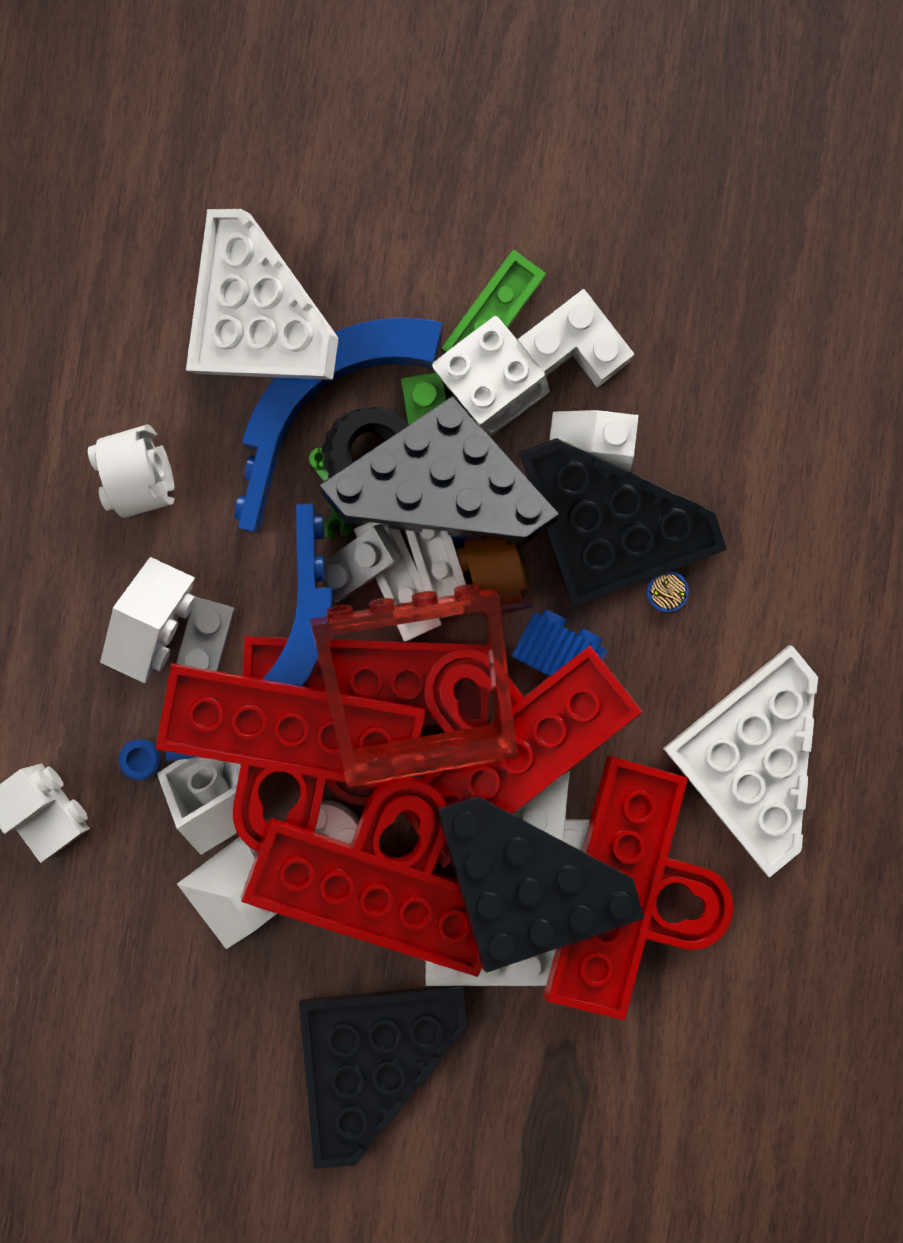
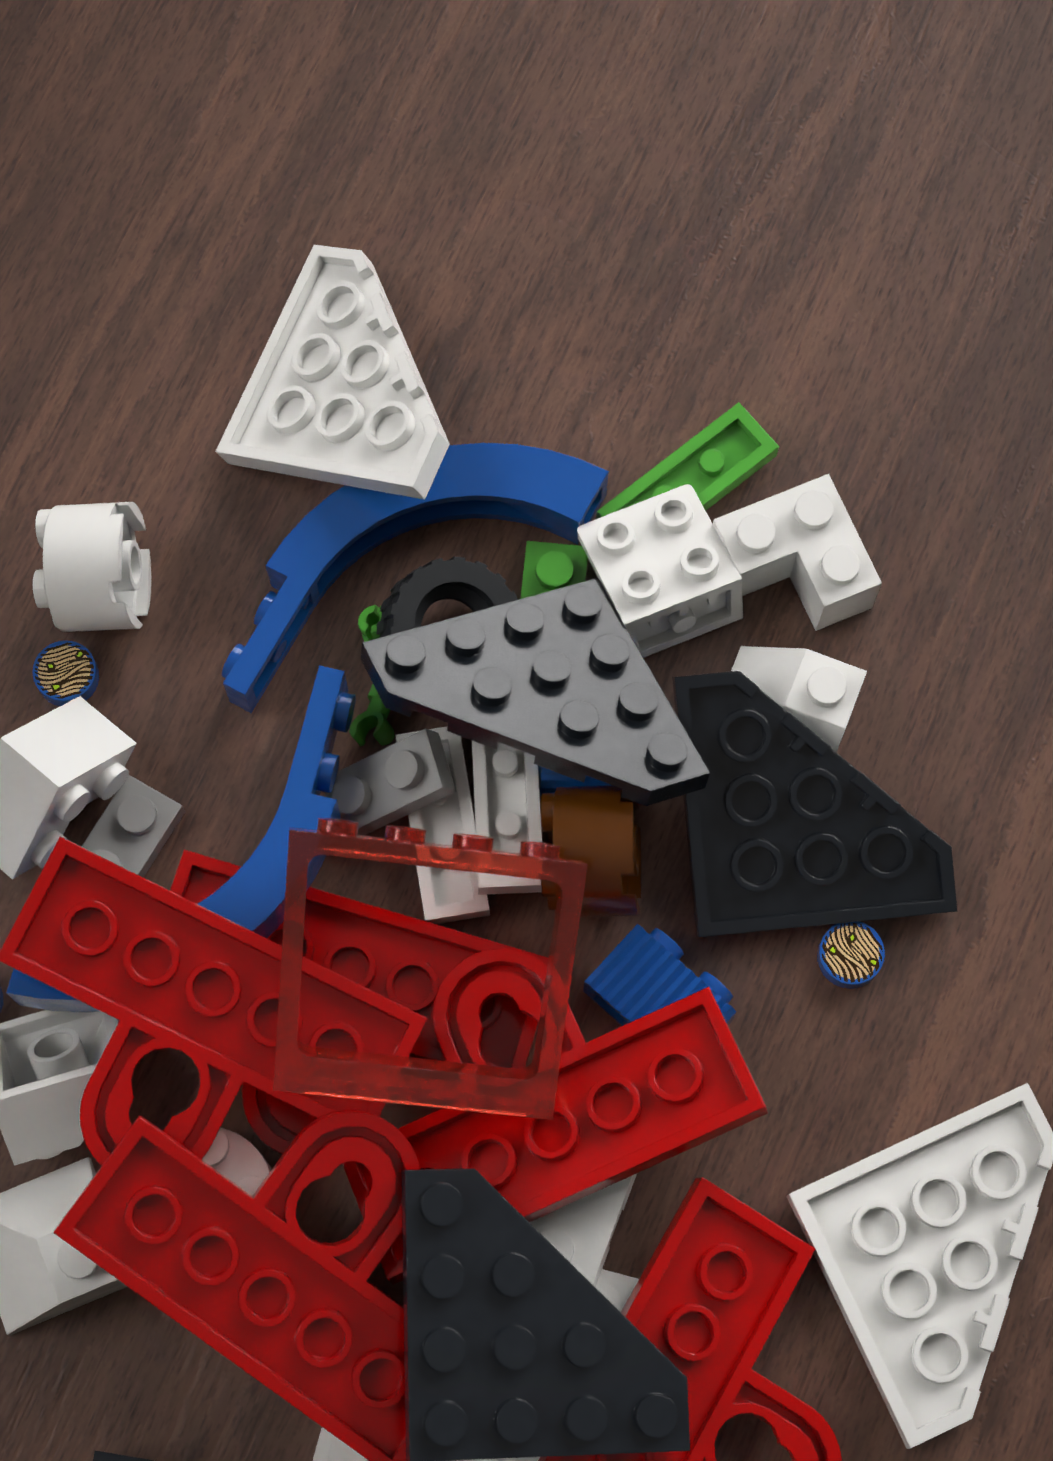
camera: 20 degrees right, 15 degrees down
(135, 541) = (65, 672): none -> tile

